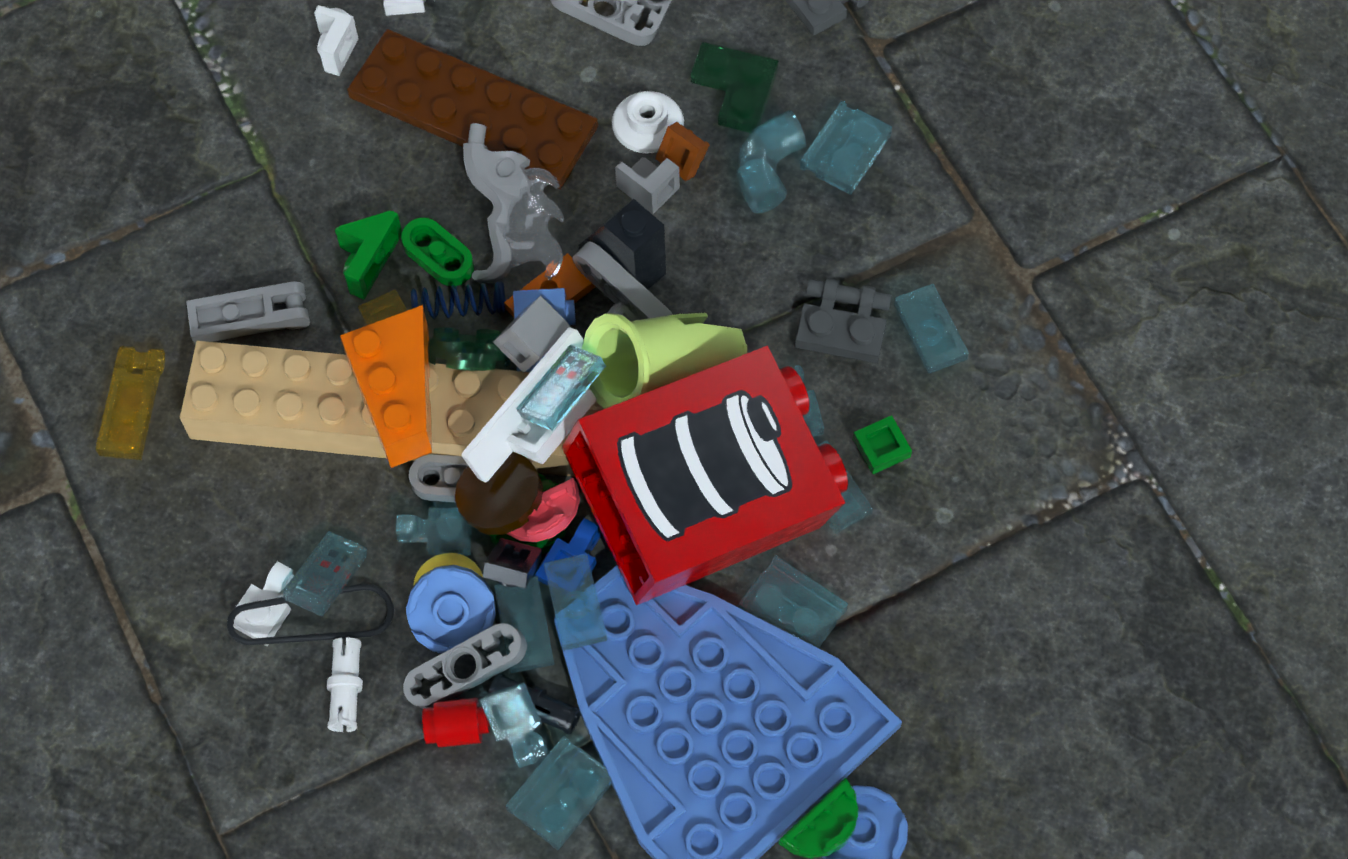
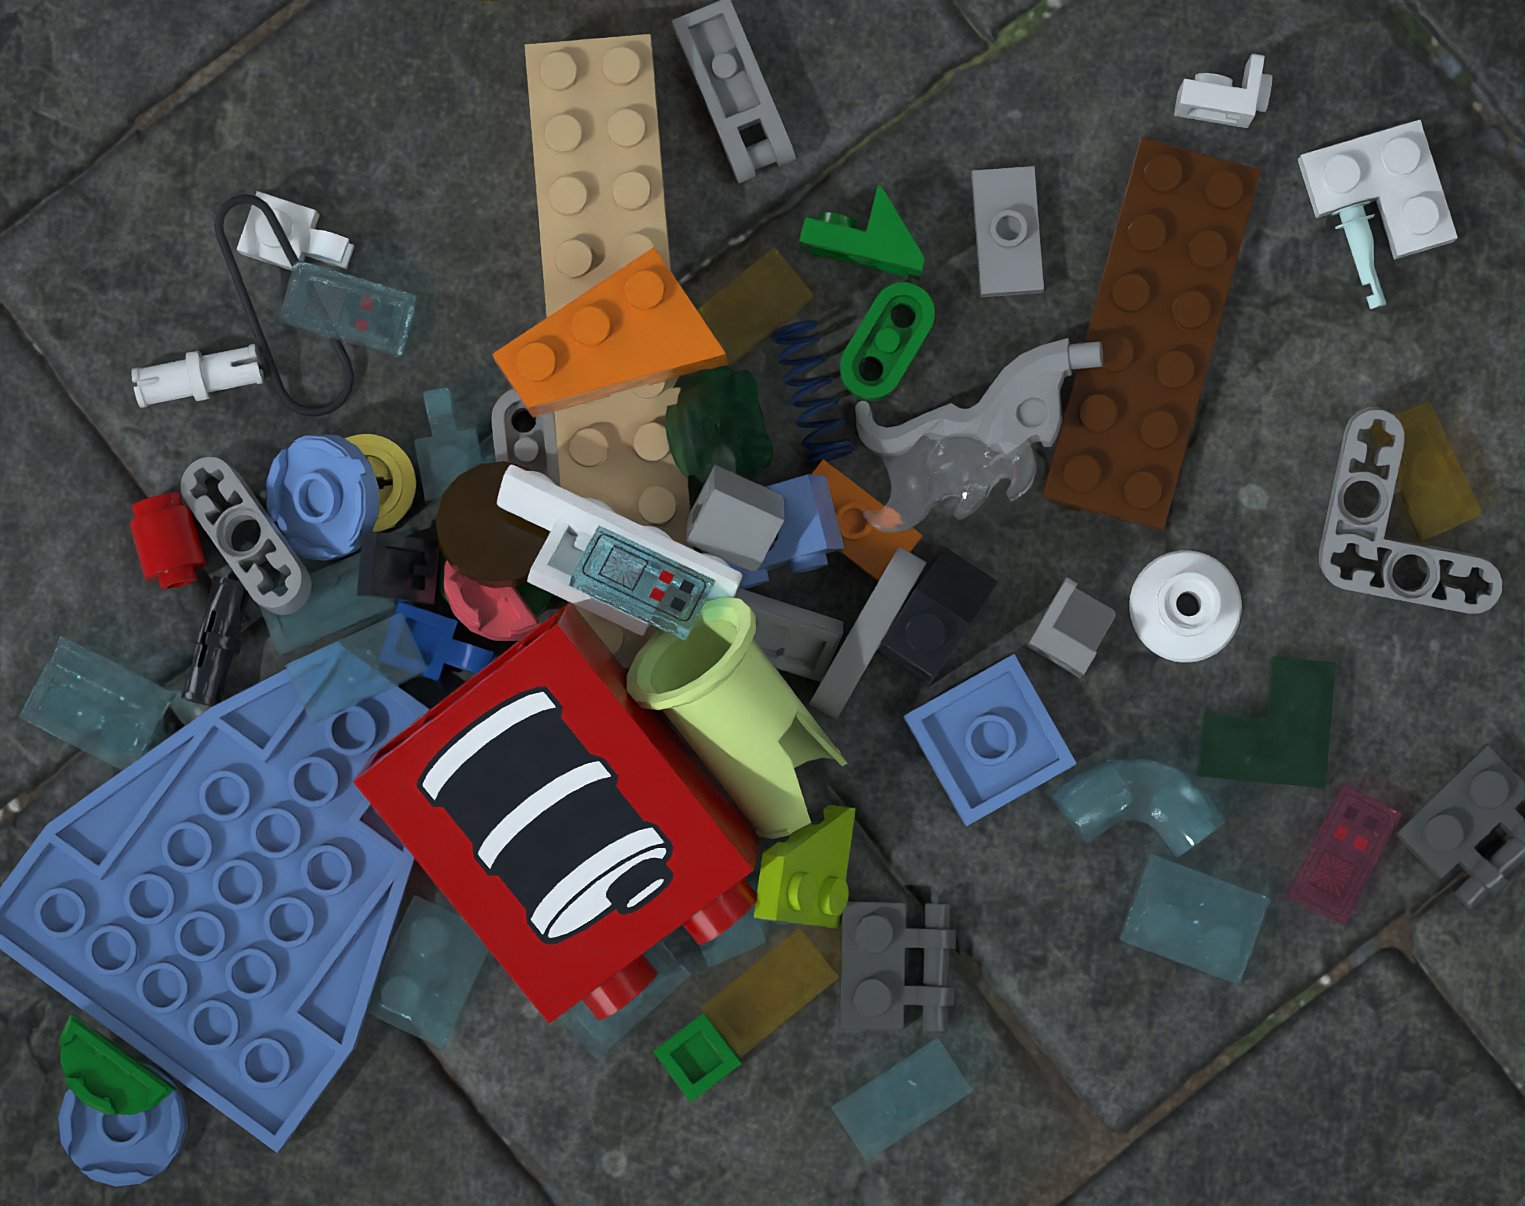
camera: 80 degrees right, 20 degrees up
(385, 175) = (1007, 231): none -> light grey plate
(515, 718) = (177, 622): clear light blue plate -> none
(682, 149) = (1129, 671): dark orange tile -> none
(709, 237) = (989, 740): none -> medium blue plate
(785, 348) = (807, 873): none -> lime wing
(821, 61) = (1343, 854): none -> clear pink tile
(846, 392) = (769, 992): none -> clear yellow plate

